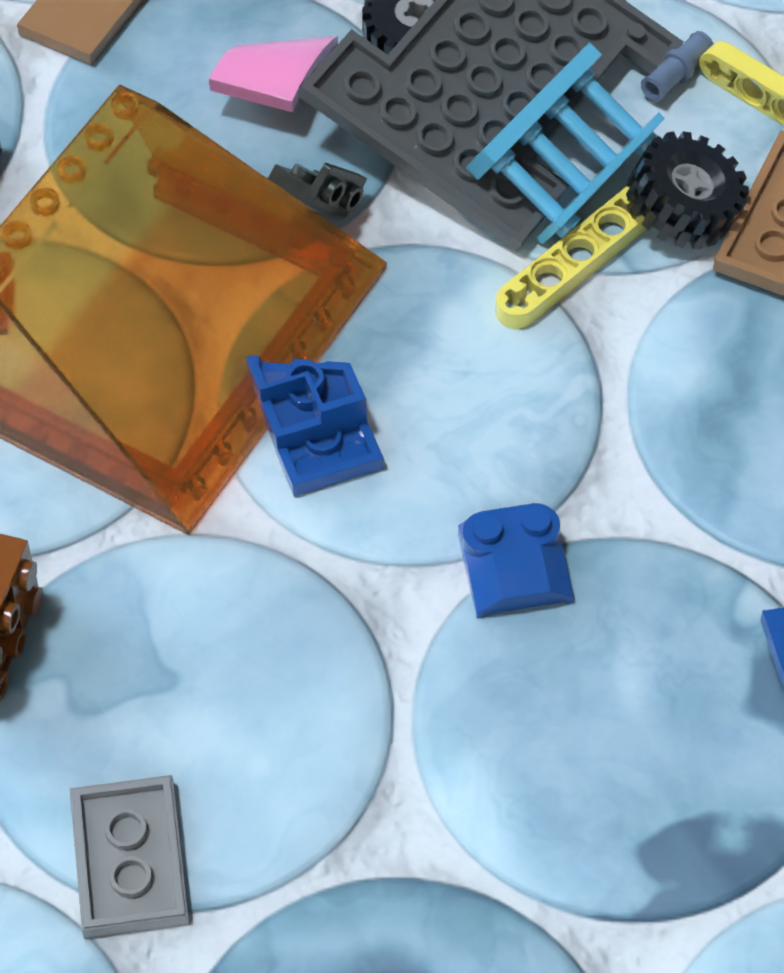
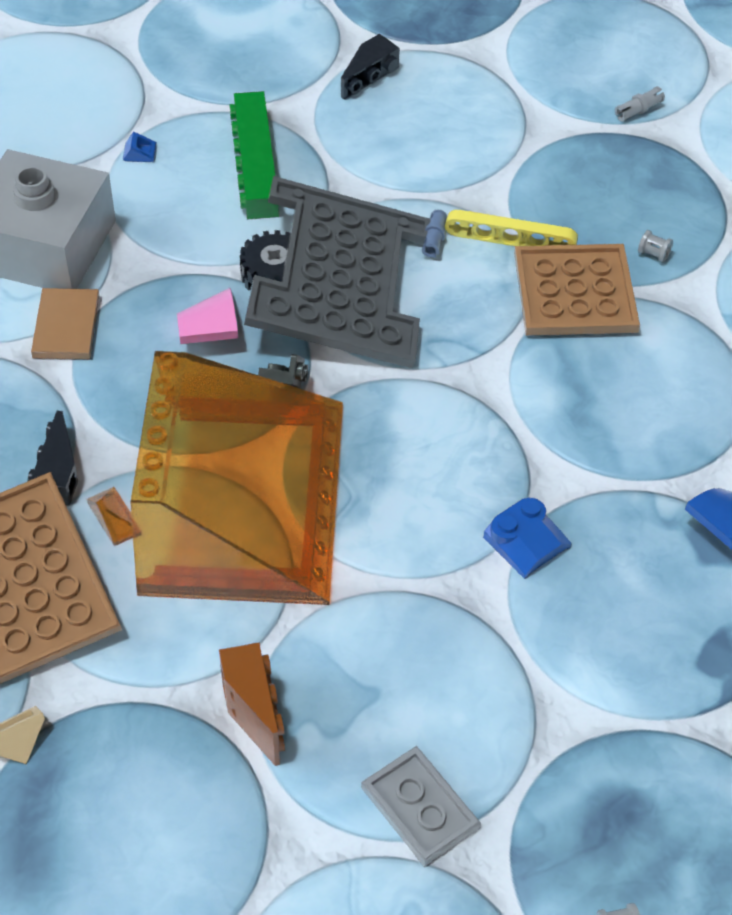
camera: 30 degrees left, 5 degrees down
(315, 421) = (365, 506): blue slope -> none
(526, 130) = (383, 295): medium azure fence -> none
(570, 271) = (447, 365): light yellow beam -> none
(687, 190) = (489, 296): black wheel -> none

